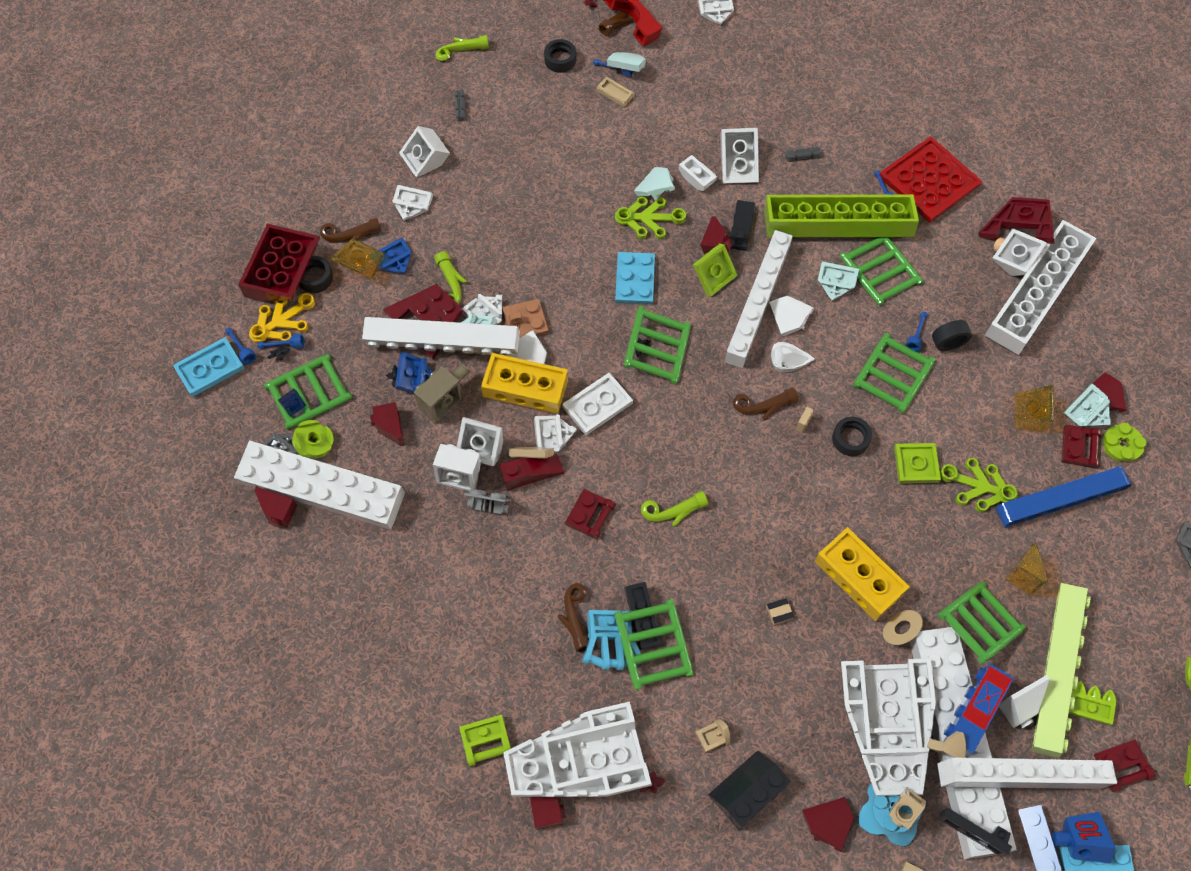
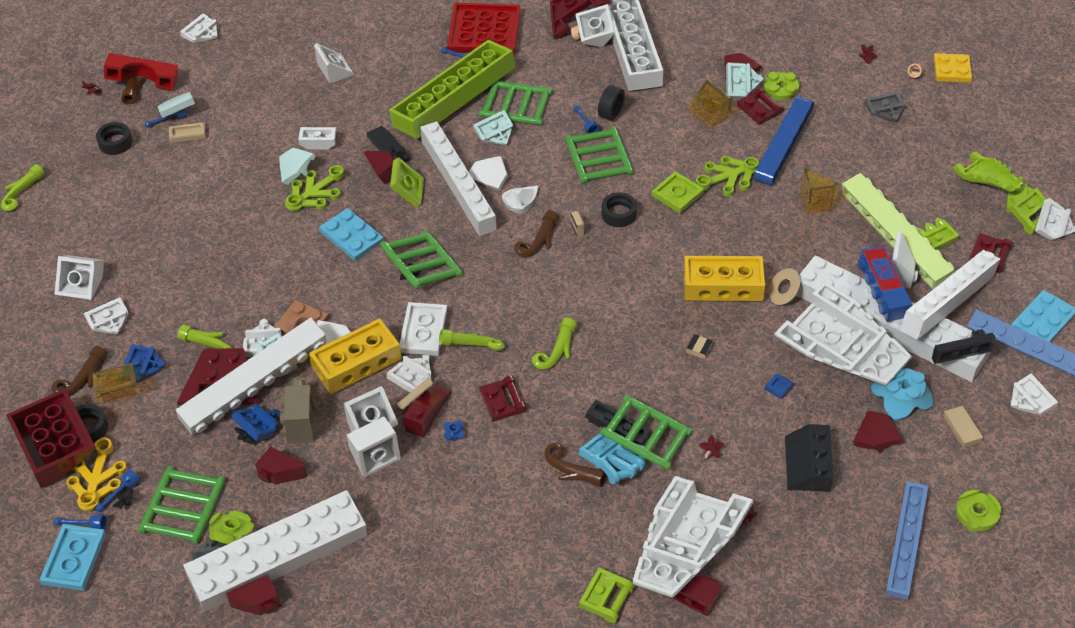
camera: 45 degrees left, 15 degrees down
(292, 402) = (182, 516): clear blue tile -> none
(460, 105) = (68, 226): dark grey axle -> none
(477, 501) = (426, 446): light grey hinge -> none
(535, 506) = (454, 435): none -> blue plate
(621, 444) = (447, 337): none -> lime plant
(689, 703) = (711, 447): none -> dark red plant
(714, 735) = (749, 450): tan tile -> none
(739, 155) = (334, 104): white slope -> none
(777, 117) = (332, 64): none -> white slope
(801, 705) = (779, 386): none -> blue tile
(804, 153) = (378, 73): dark grey axle -> none
(910, 799) = (919, 363): tan brick -> none
(952, 747) = (896, 315): tan tile -> none
(969, 596) = (825, 242): bright green bar -> none
(1086, 838) = (1020, 302): blue torso -> none

